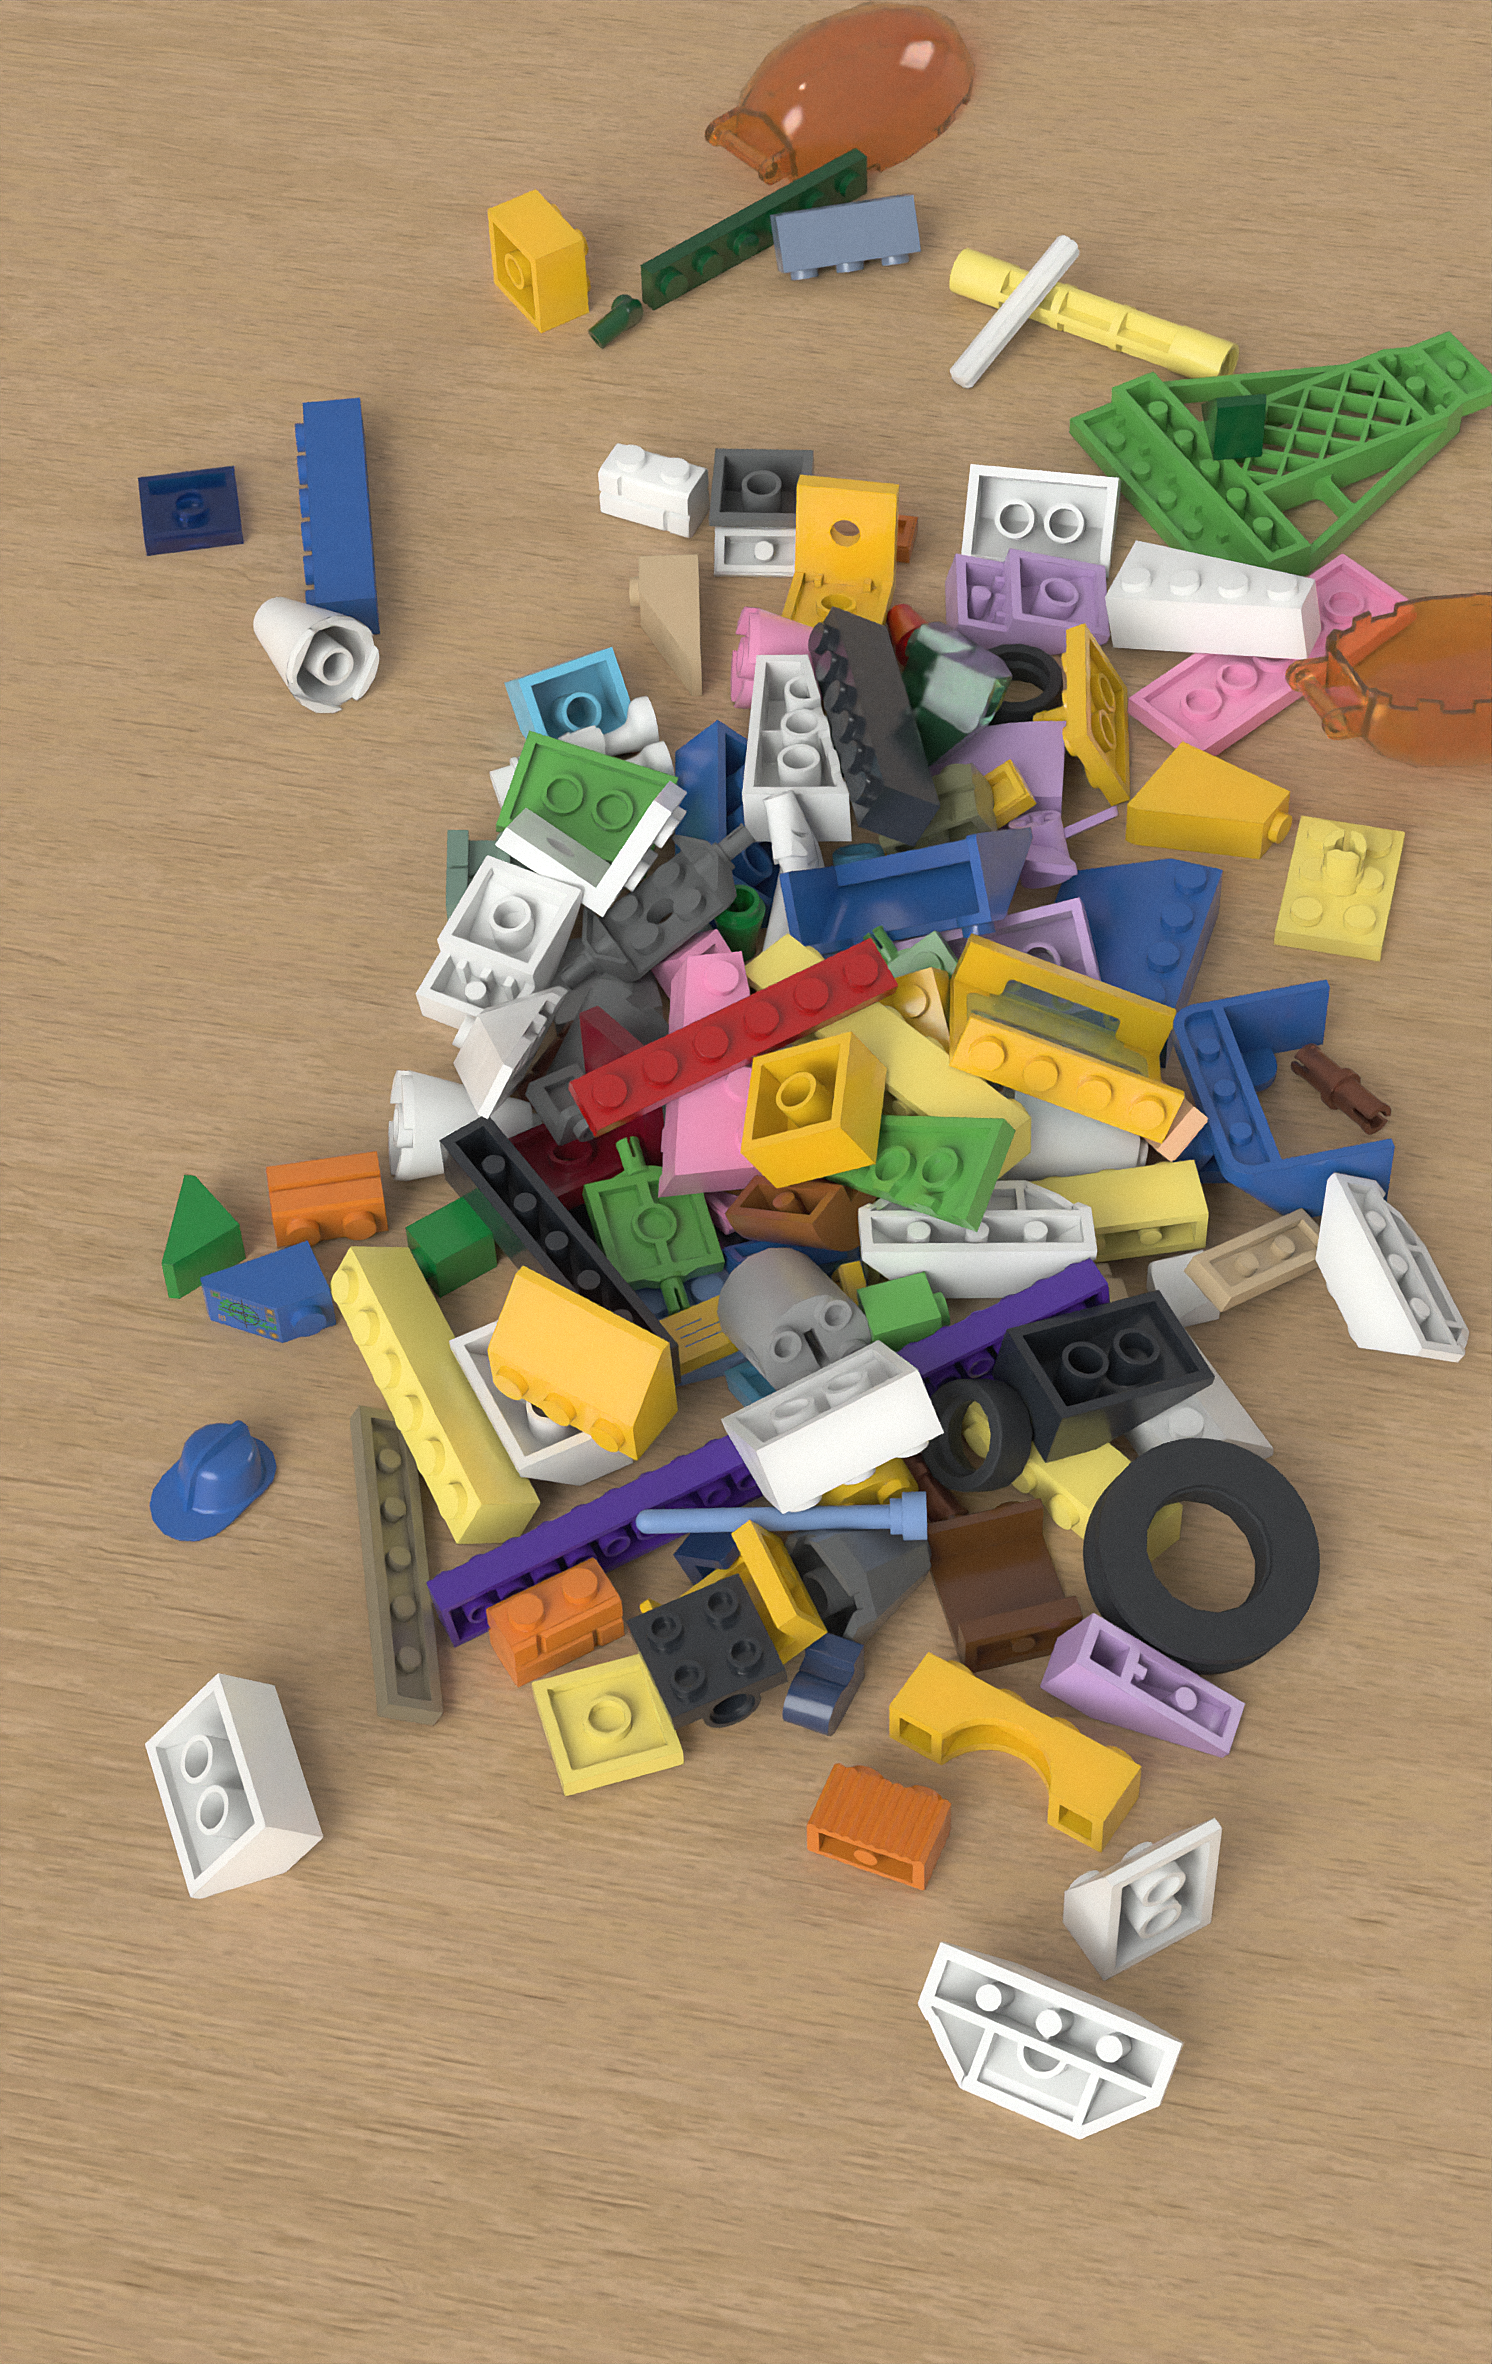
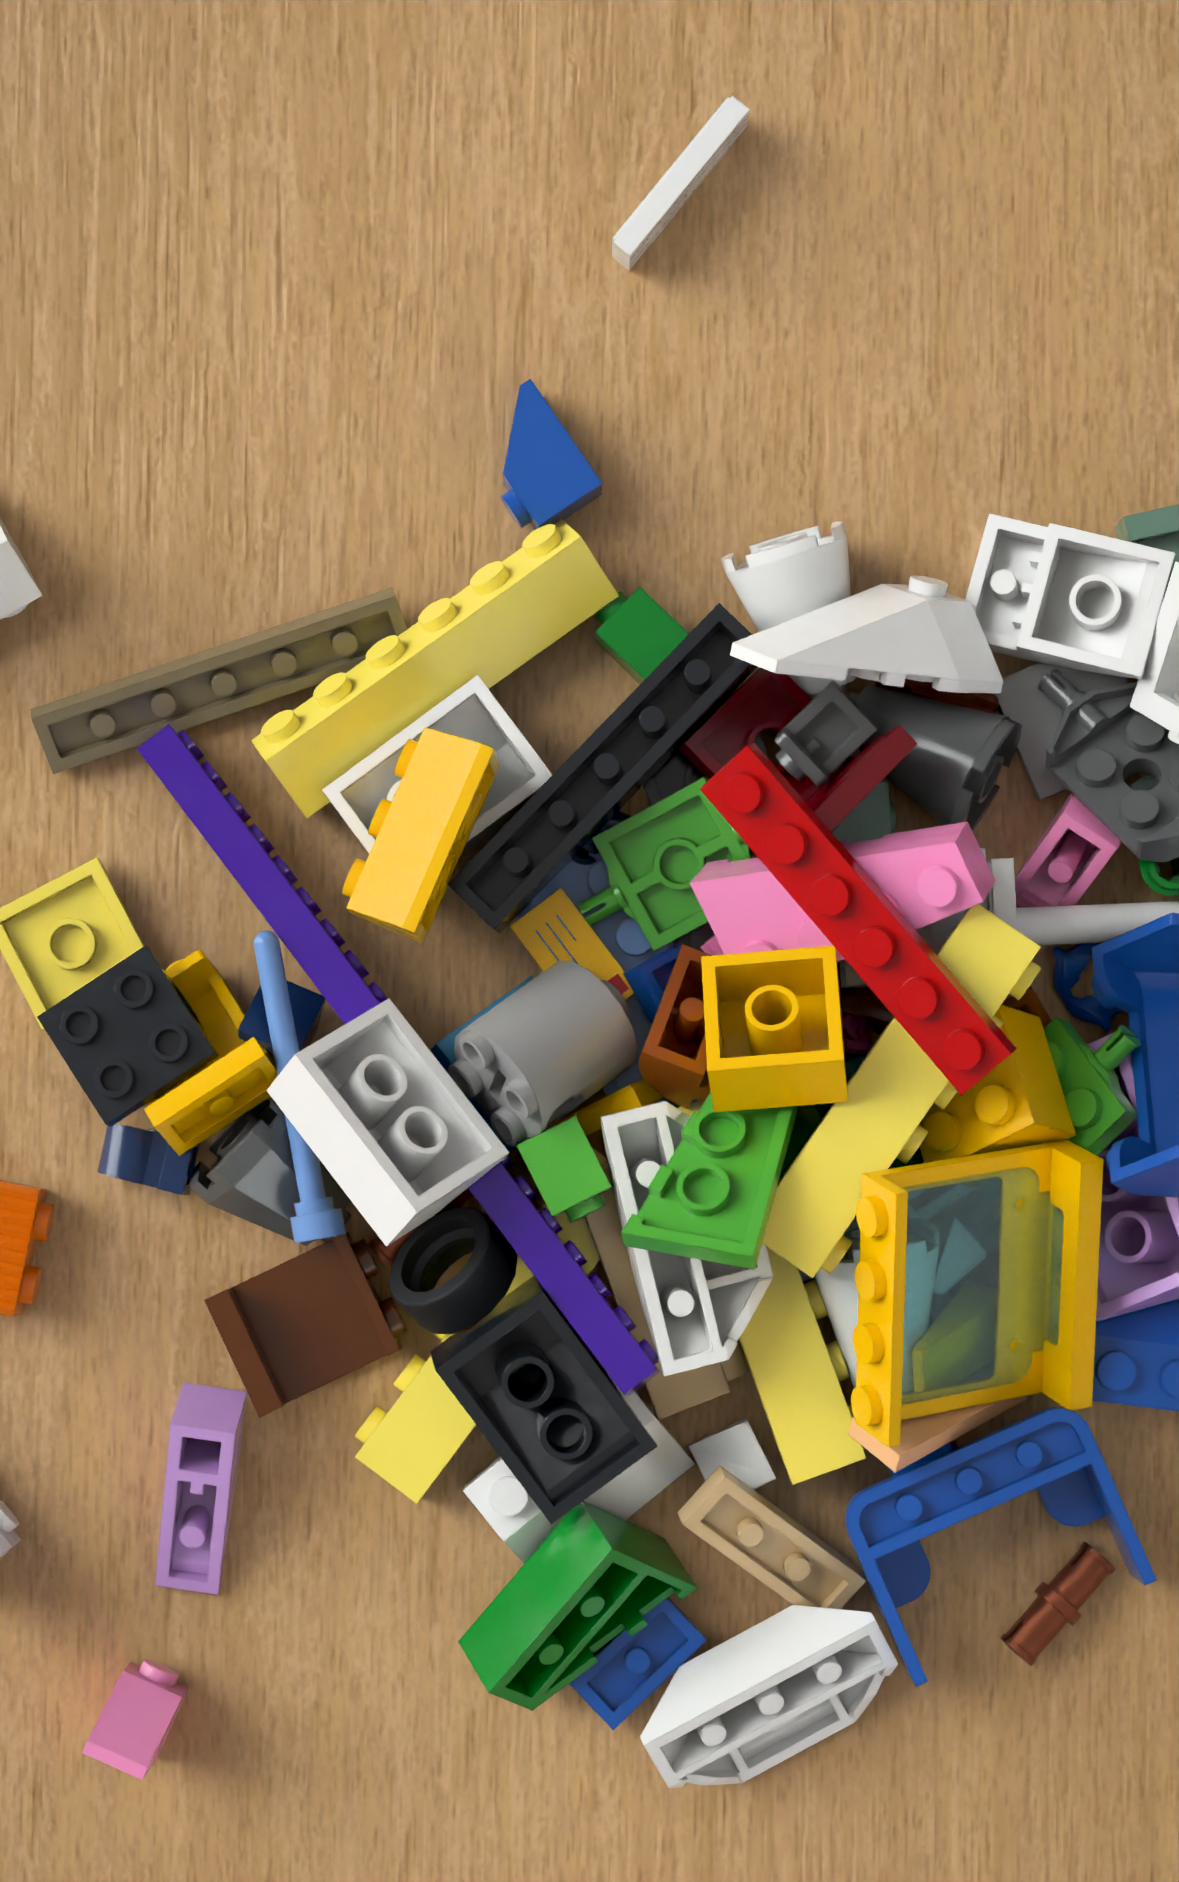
camera: 75 degrees right, 35 degrees up
(66, 1167) = (679, 182): none -> white tile
(200, 1239) = (607, 359): green slope -> none
(212, 1482) = (304, 460): blue piece -> none
(327, 1199) = (684, 486): orange brick -> none
(555, 1622) = (172, 865): orange brick -> none
(952, 1713) = (77, 1446): yellow arch -> none
(1257, 1502) = (302, 1600): black tyre -> none
(1290, 1410) = (569, 1602): none -> green wedge
(1349, 1384) = (638, 1664): none -> blue plate
(1353, 1763) = (137, 1718): none -> bright pink slope

